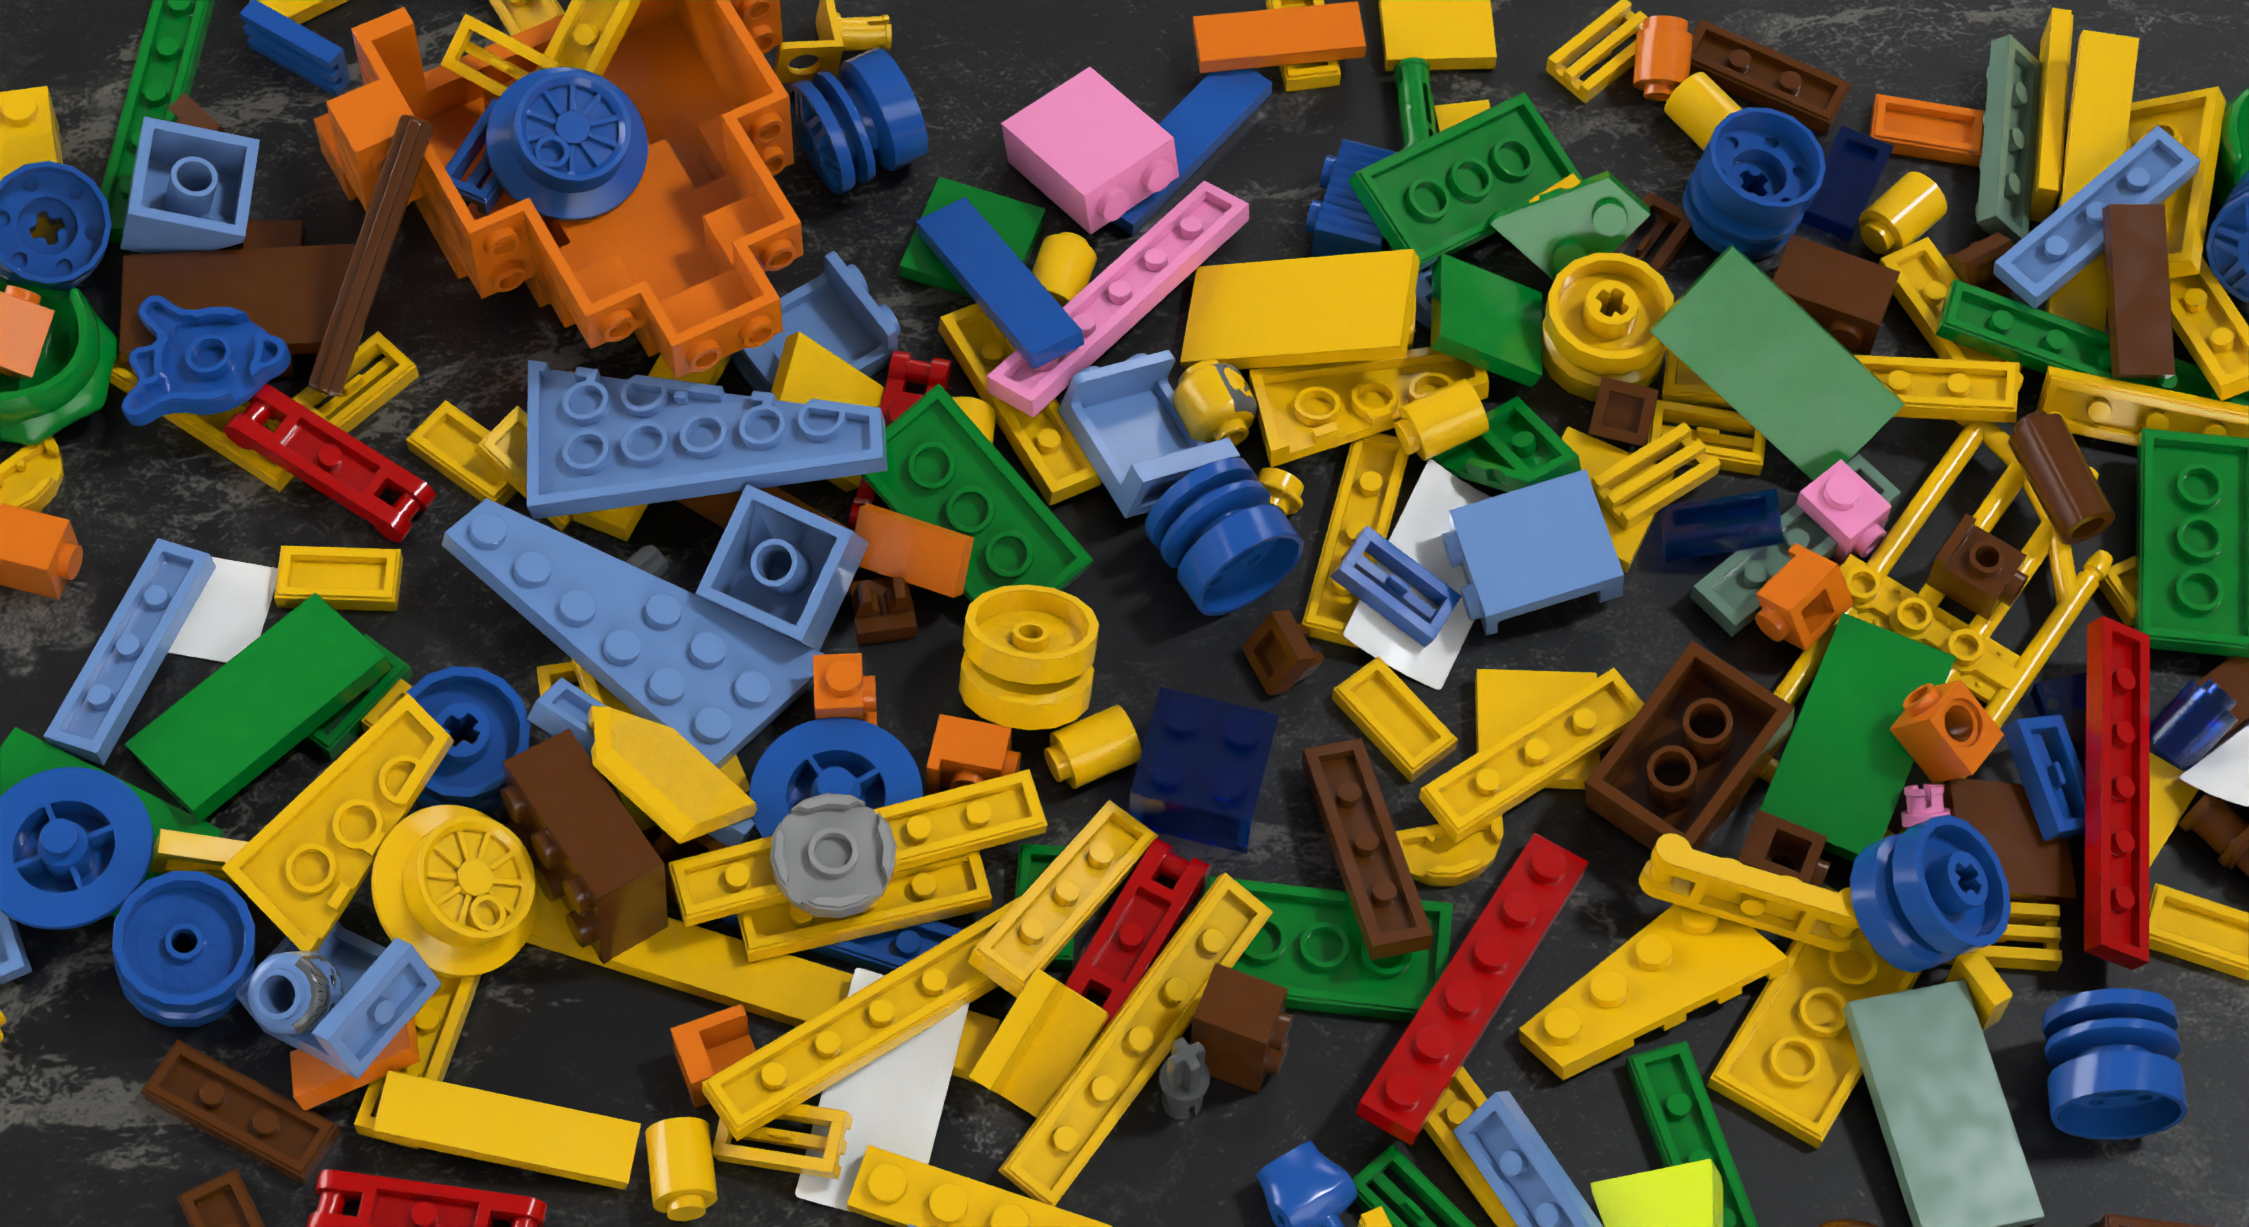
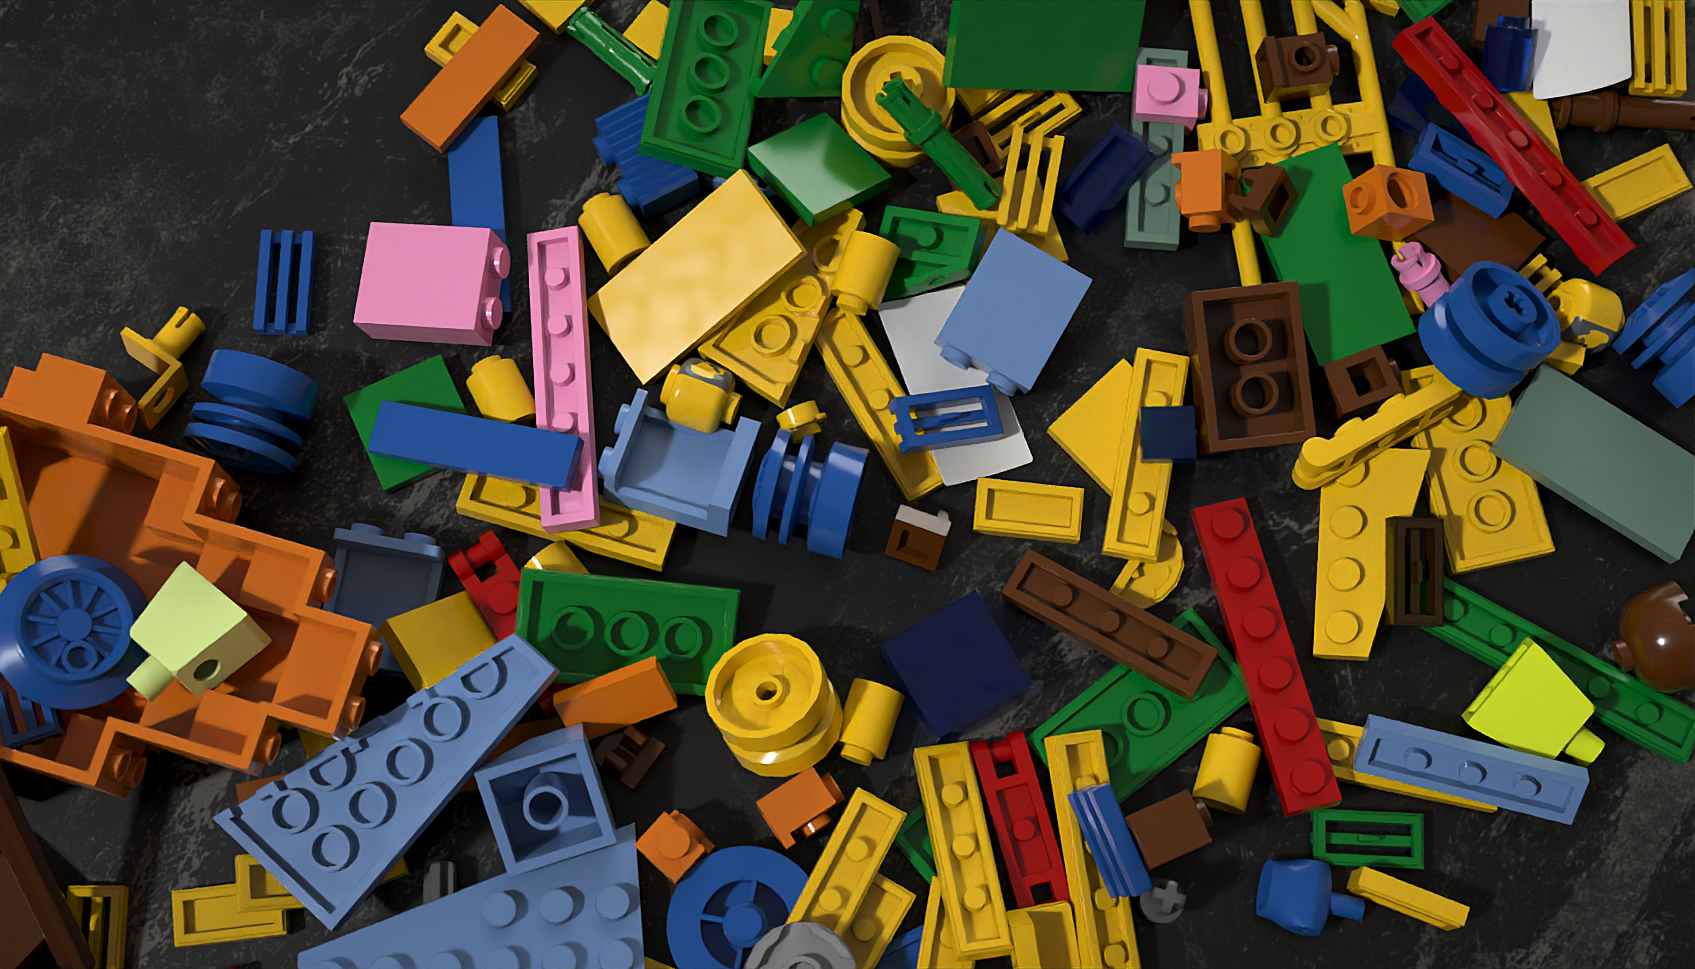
camera: 45 degrees left, 15 degrees up
(645, 212) = (192, 636): none -> yellowish green torso
(976, 60) = (287, 241): none -> blue tile
(1187, 983) = (1110, 841): none -> blue tile
(1274, 229) = (613, 231): none -> yellow brick
(1347, 1046) = (1227, 770): none -> yellow brick
(1565, 745) = (1167, 434): none -> clear blue tile
(1599, 369) = (924, 128): none -> green pin
(1634, 1071) = (1405, 572): none -> dark brown tile
(1840, 639) = (1267, 200): none -> reddish brown tile
(2039, 972) = (1587, 314): none -> yellow head

